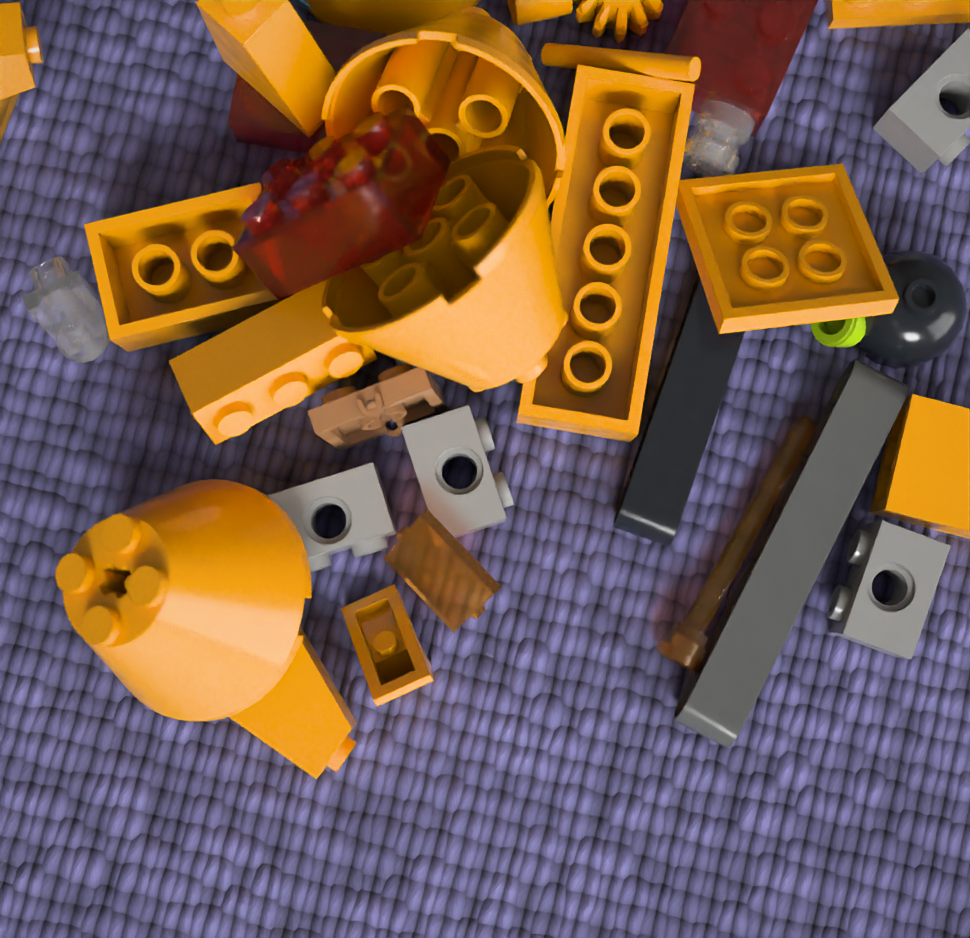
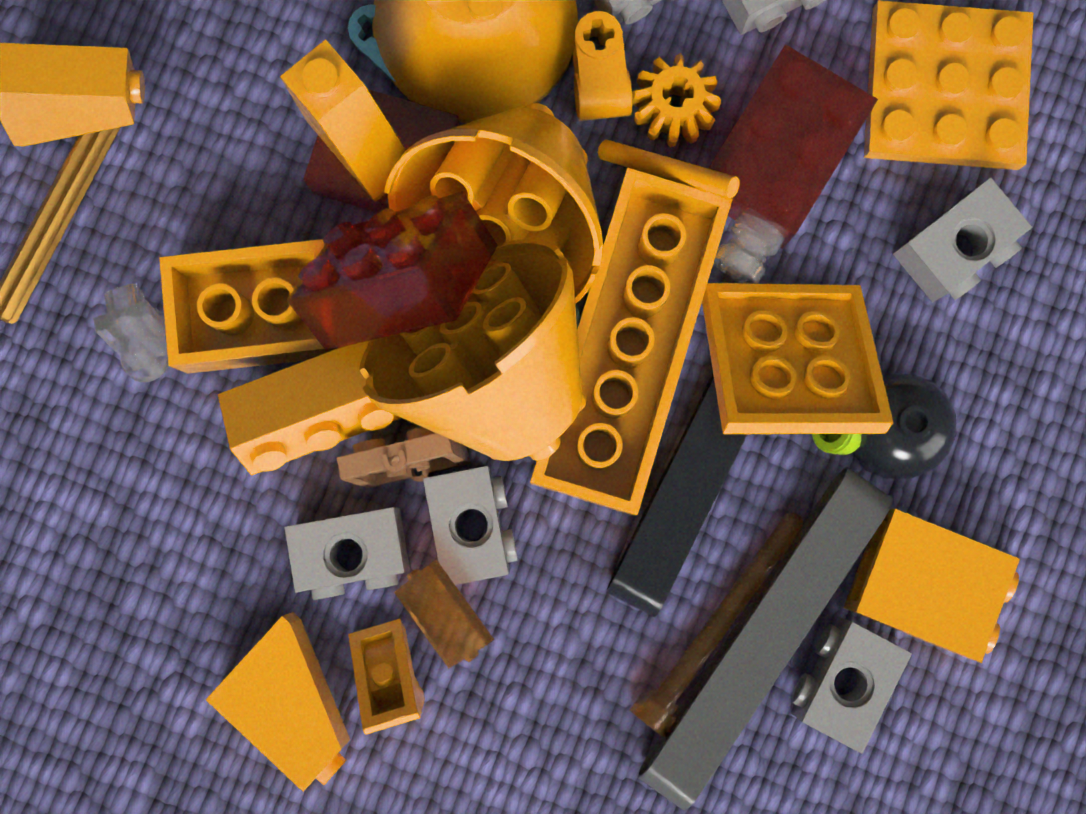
camera: 10 degrees right, 0 degrees up
(192, 597) = (209, 611): light orange cone -> none

